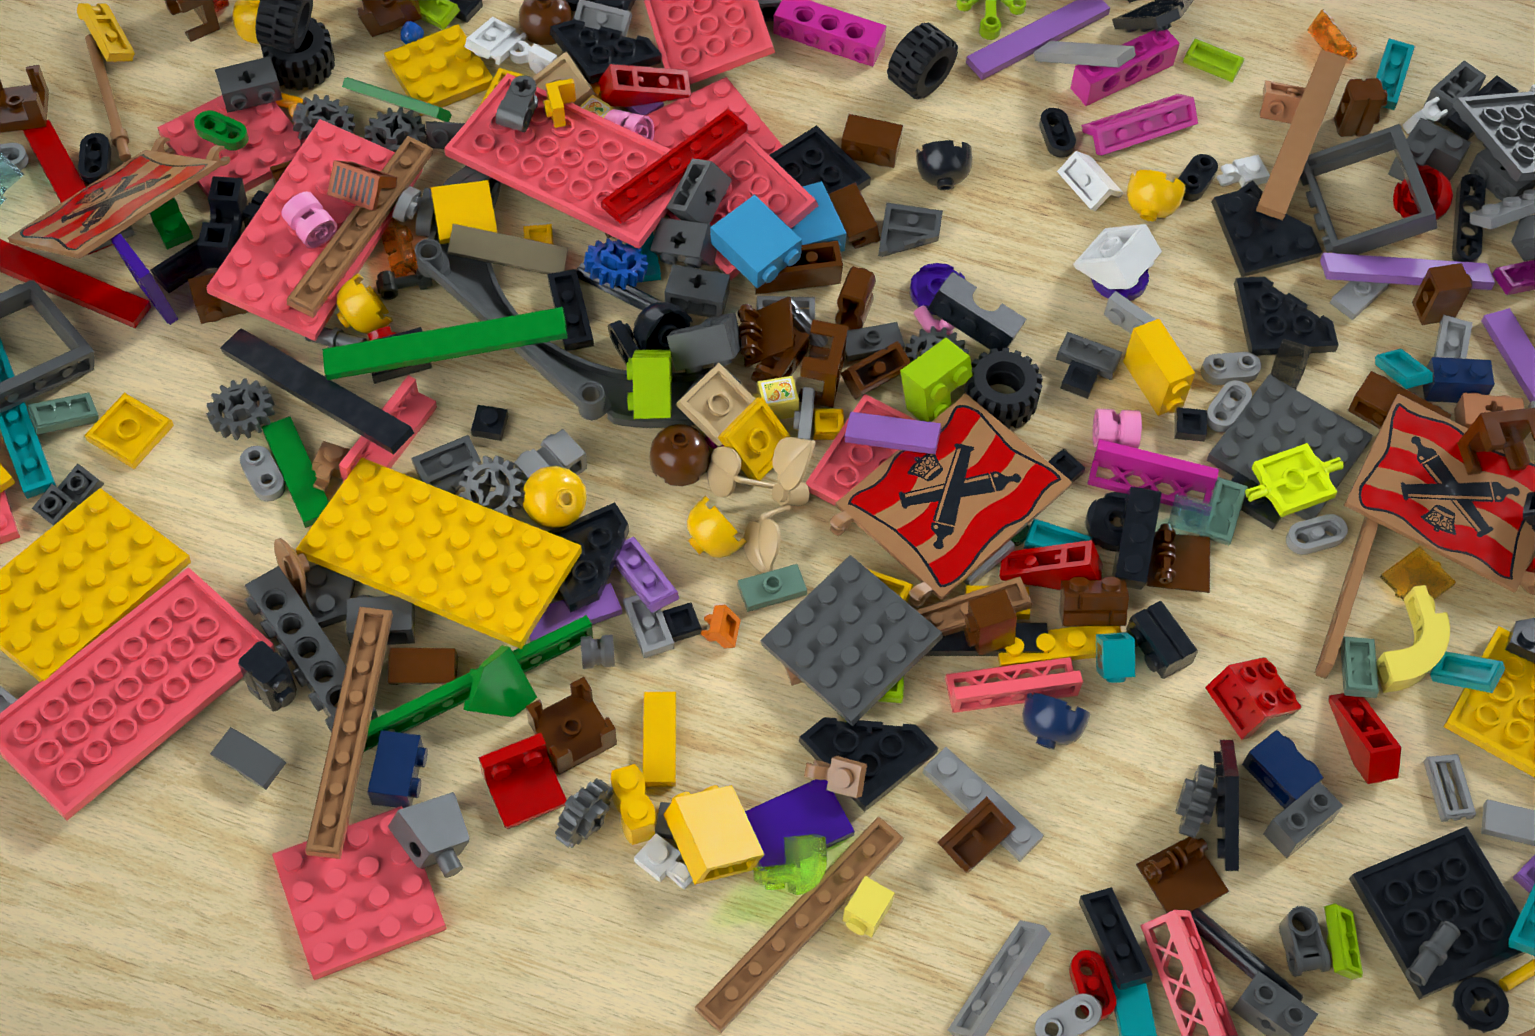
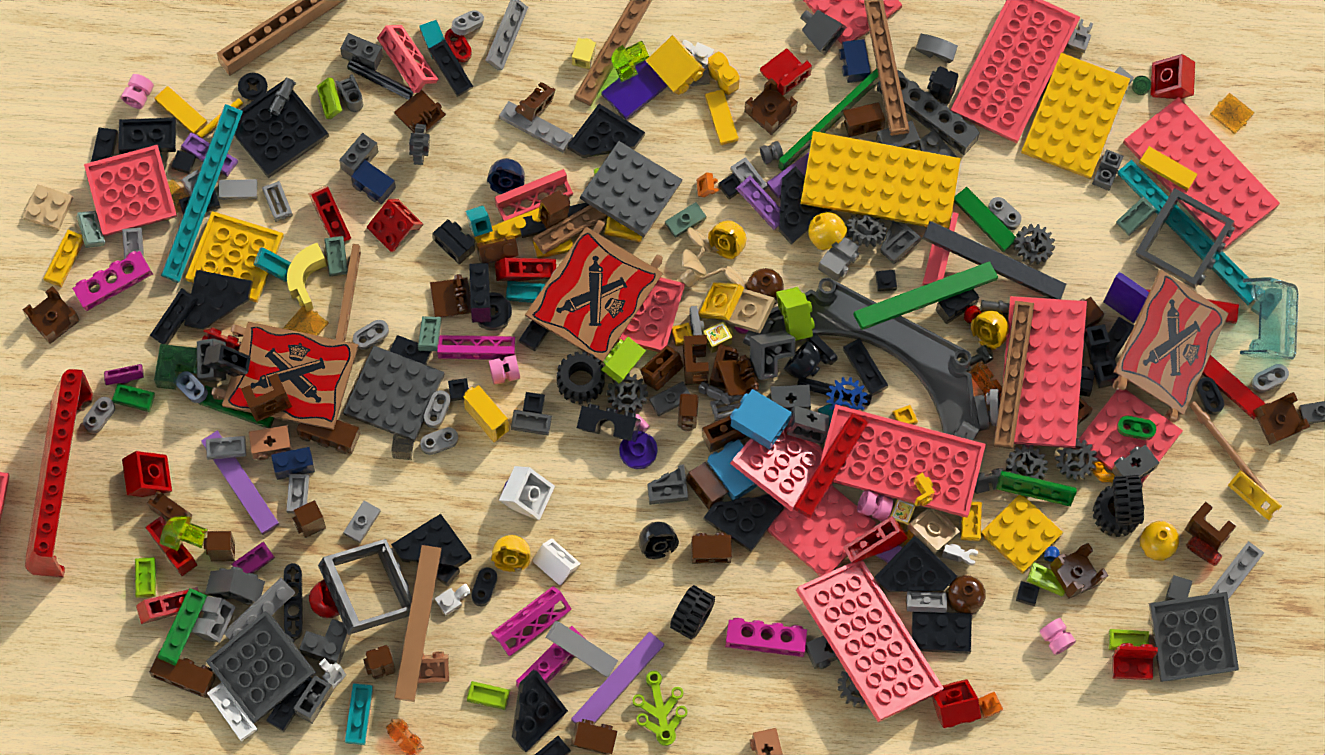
camera: 165 degrees right, 10 degrees up
(129, 430) = (1094, 219): yellow tile -> none
(292, 565) = (958, 150): medium nougat dish -> none
(309, 219) = (1043, 355): bright pink wheel -> none
(327, 463) = (967, 227): medium nougat plate -> none
(358, 183) = (1024, 395): copper panel -> none
(463, 205) = (956, 409): yellow tile -> none
(494, 40) = (991, 559): white plate -> none
(499, 686) = (816, 113): green slope -> none
(506, 250) = (918, 392): dark tan tile -> none
(518, 104) = (948, 478): dark grey piece -> none
(584, 813) = (746, 55): dark grey gear -> none
(699, 192) = (809, 450): dark grey brick -> none
(843, 775) = (616, 111): medium nougat plate -> none
(892, 432) = (640, 322): medium lavender tile -> none
(1060, 137) = (586, 595): black plate -> none
(1125, 313) = (502, 451): light grey plate -> none
(1190, 514) = (450, 320): clear light blue brick -> none
(1227, 804) = (404, 157): black plate -> none
(1273, 316) = (412, 481): black plate -> none
(1294, 479) = (390, 356): neon yellow plate -> none
(1395, 269) = (333, 539): medium lavender tile -> none
(1403, 368) = (328, 461): teal tile -> none

